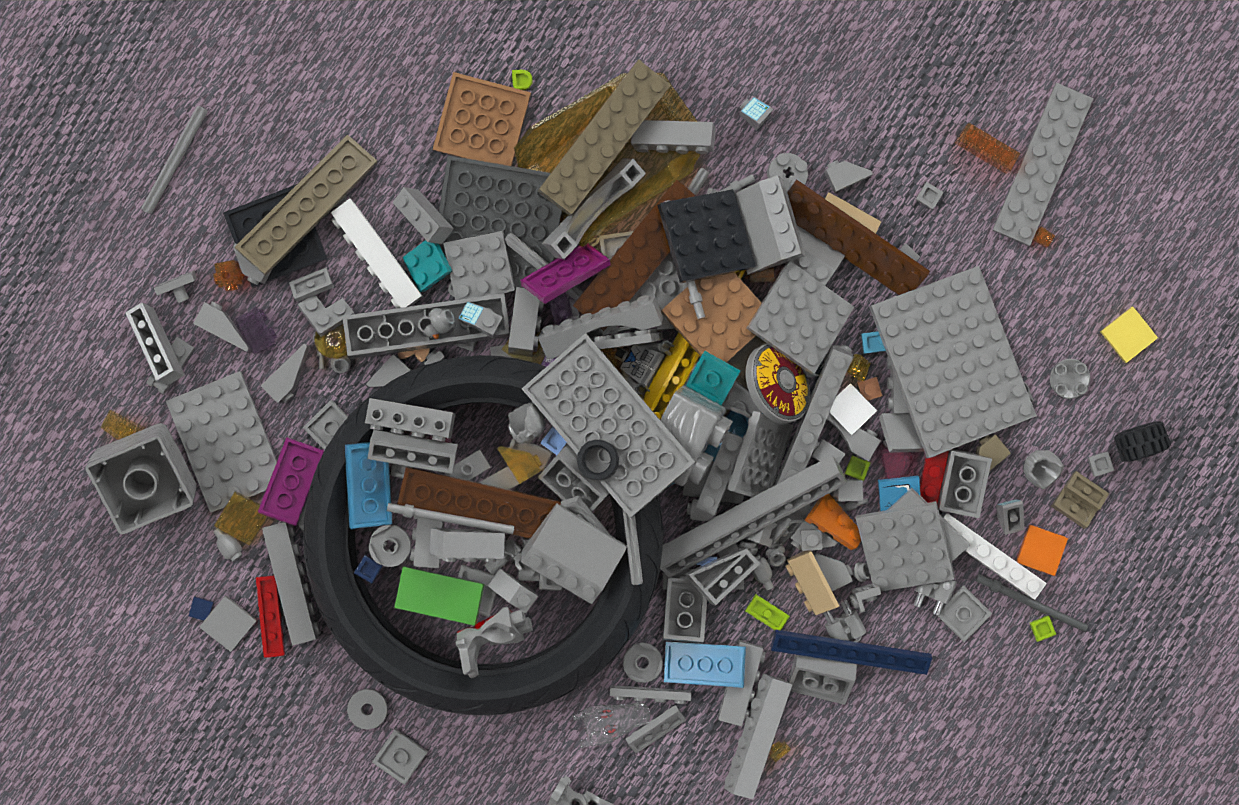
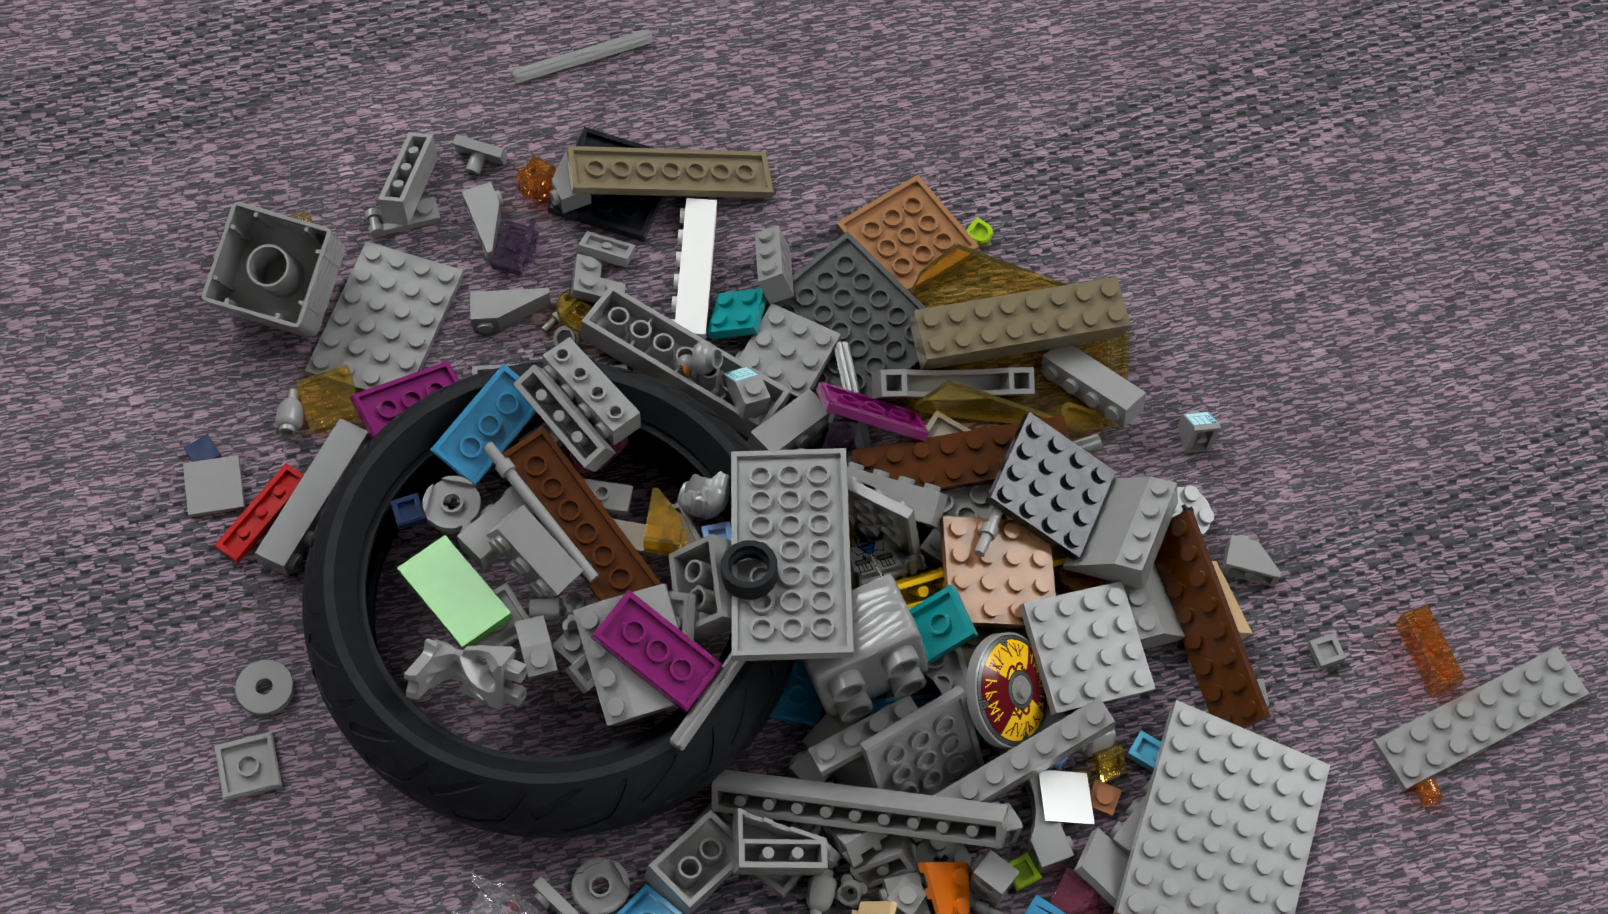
camera: 35 degrees right, 25 degrees down
(585, 545) = (656, 651): none -> magenta tile

